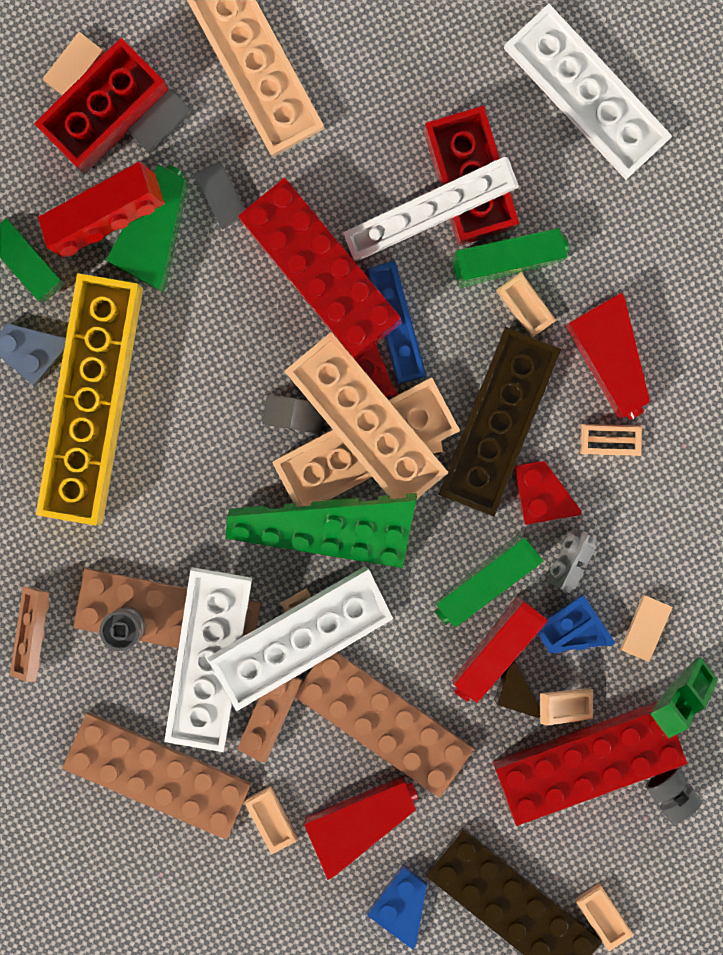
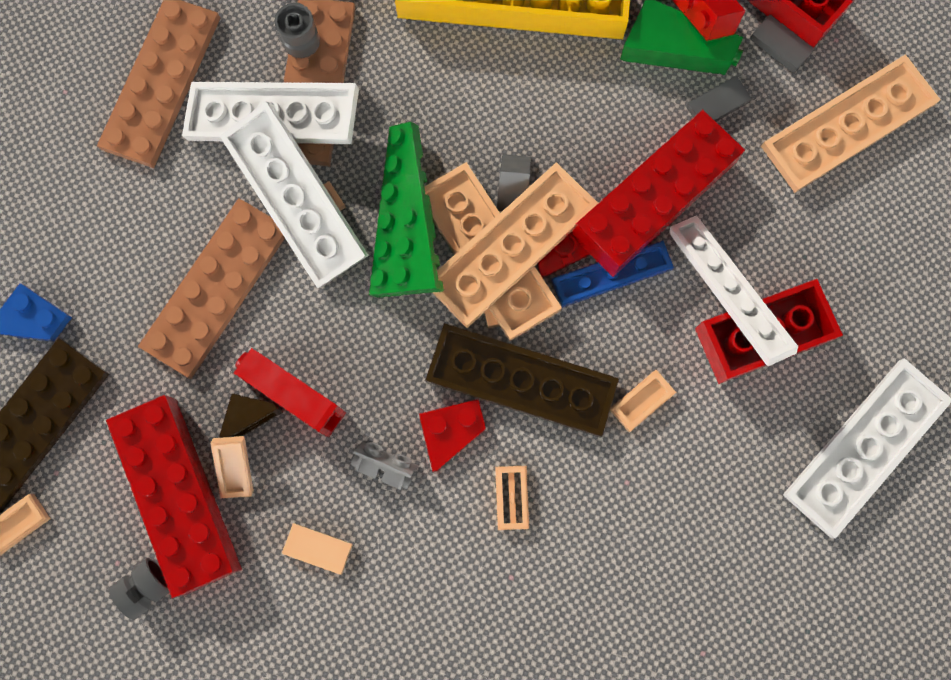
camera: 90 degrees right, 10 degrees down
(268, 720) = (214, 176): nougat plate -> none
(271, 820) = (116, 187): light nougat tile -> none
(357, 823) = (110, 264): red slope -> none
(487, 581) = (359, 376): green slope -> none
(509, 257) = (690, 374): green slope -> none
(575, 628) = (314, 471): blue wing -> none
(611, 353) = (604, 488): red slope -> none
(685, 698) = (242, 590): green slope -> none

